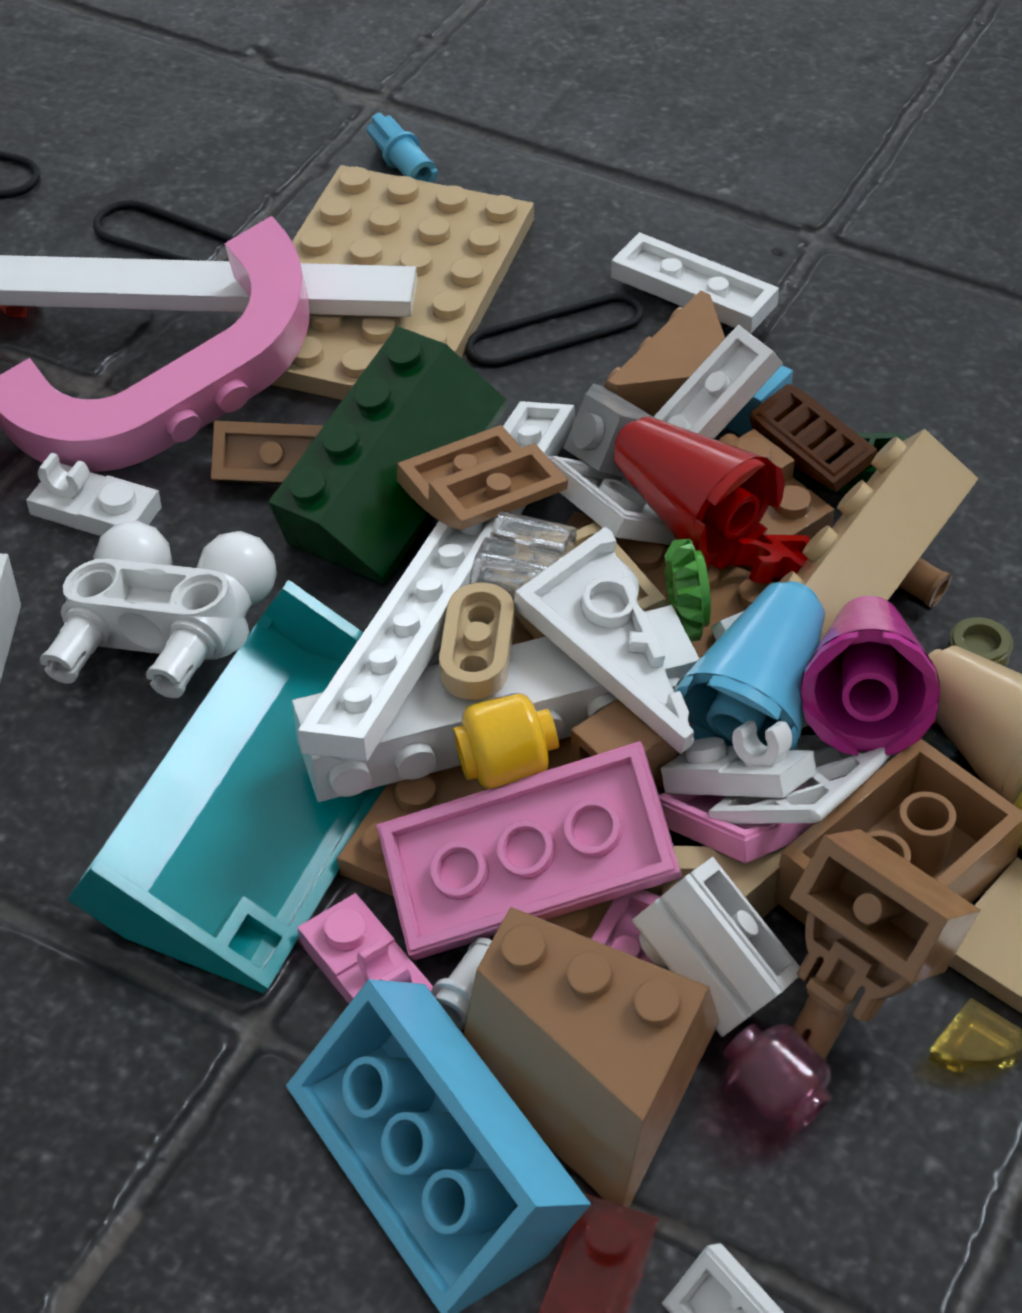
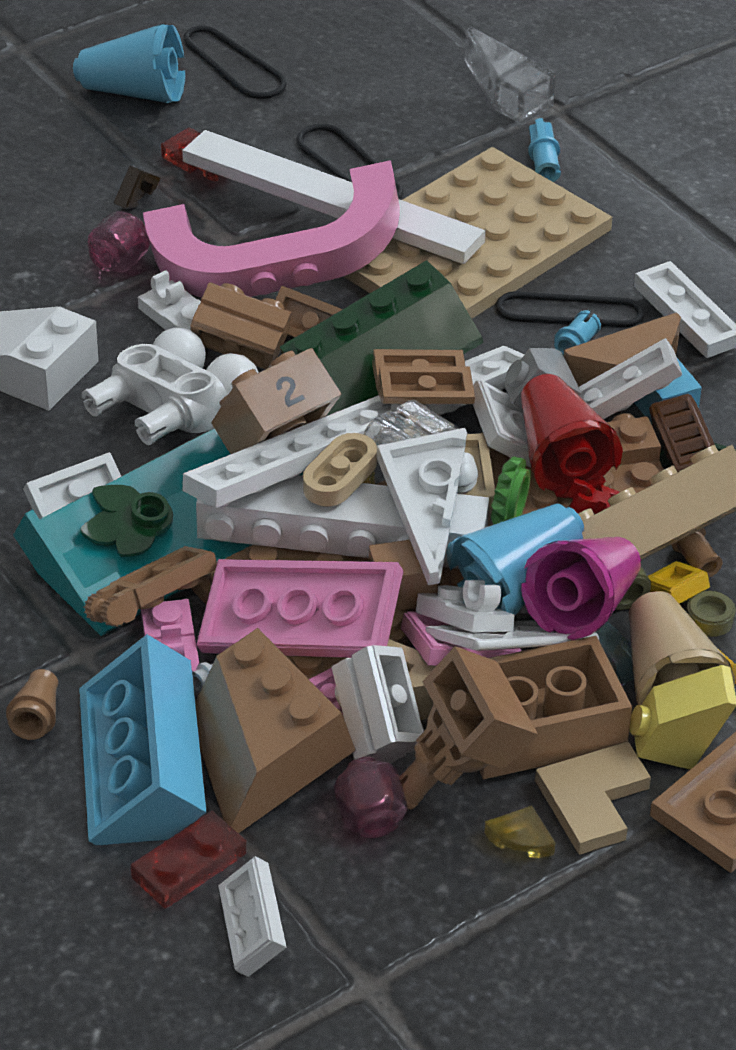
camera: 25 degrees right, 5 degrees down
(103, 798) = (70, 484): none -> white plate
(194, 489) = (241, 324): none -> medium nougat brick
(201, 817) = (127, 519): none -> dark green plate
(250, 1147) = (34, 706): none -> medium nougat cone
(302, 898) = (148, 585): none -> medium nougat hinge
(303, 78) = (509, 79): none -> clear slope
(340, 586) = (275, 400): none -> medium nougat brick
(504, 740) = (318, 533): yellow head -> none
(592, 357) = (577, 331): none -> medium azure pin
(931, 619) = (679, 581): none -> yellow tile

